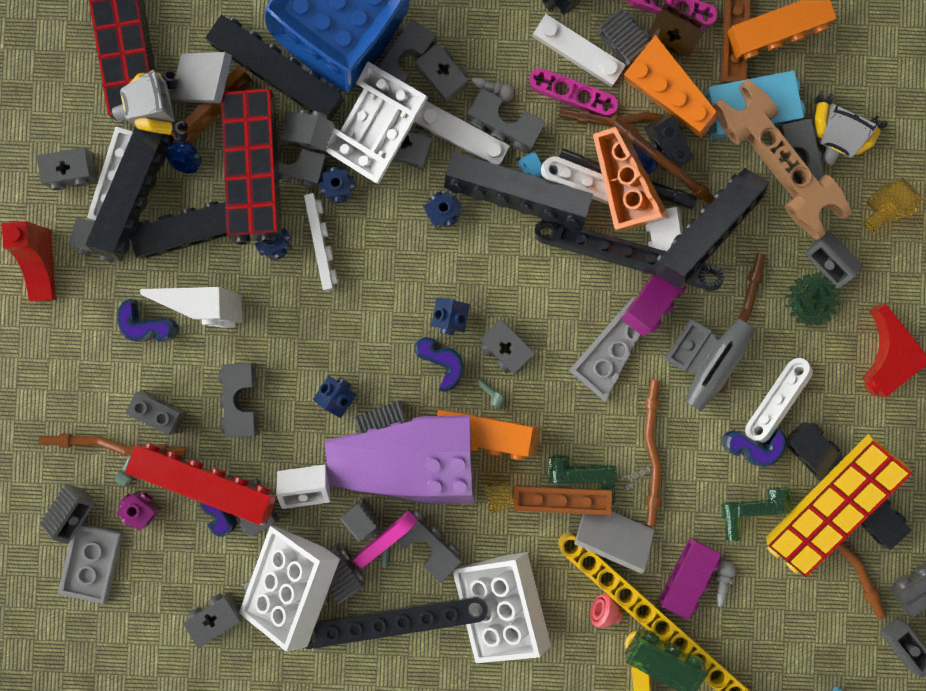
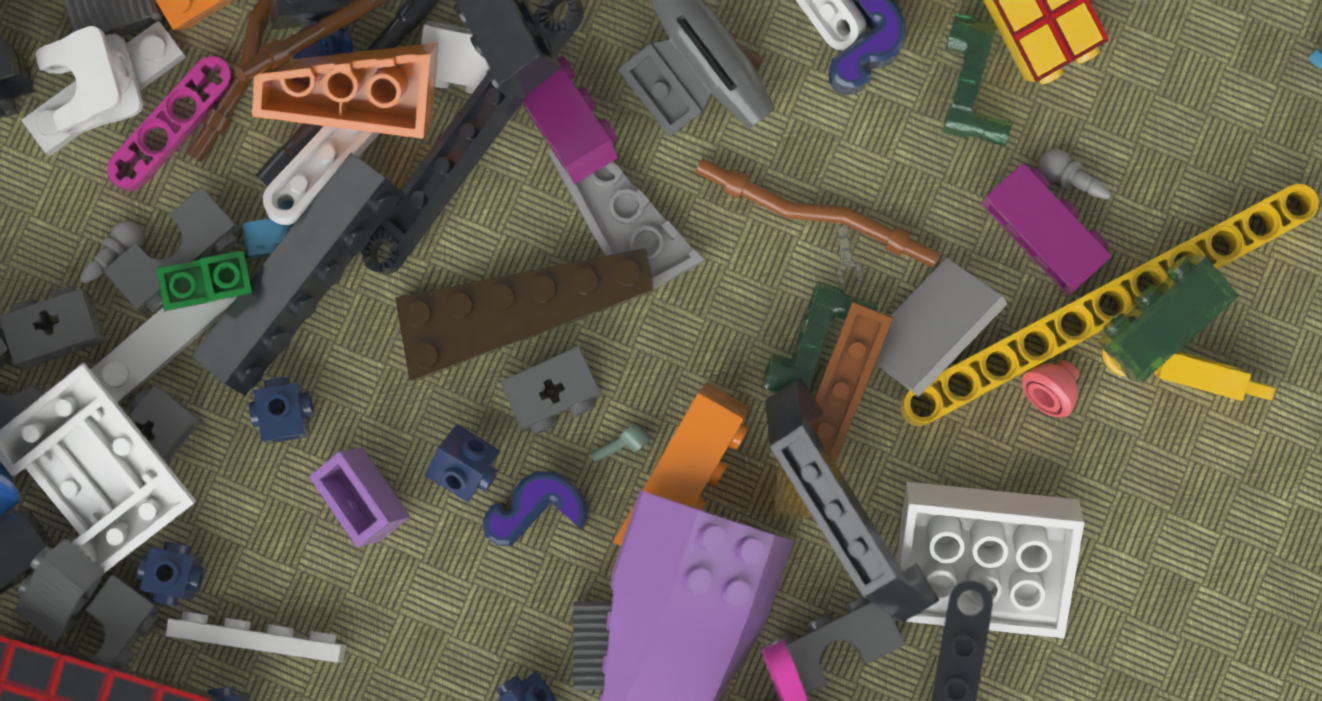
camera: 70 degrees left, 5 degrees down
(413, 268) = (359, 496): none -> medium lavender brick
(495, 142) = (203, 281): none -> green slope
(499, 522) = (838, 509): none -> black slope
(532, 297) = (483, 316): none -> dark brown wing
(585, 47) = (103, 76): none -> white piece

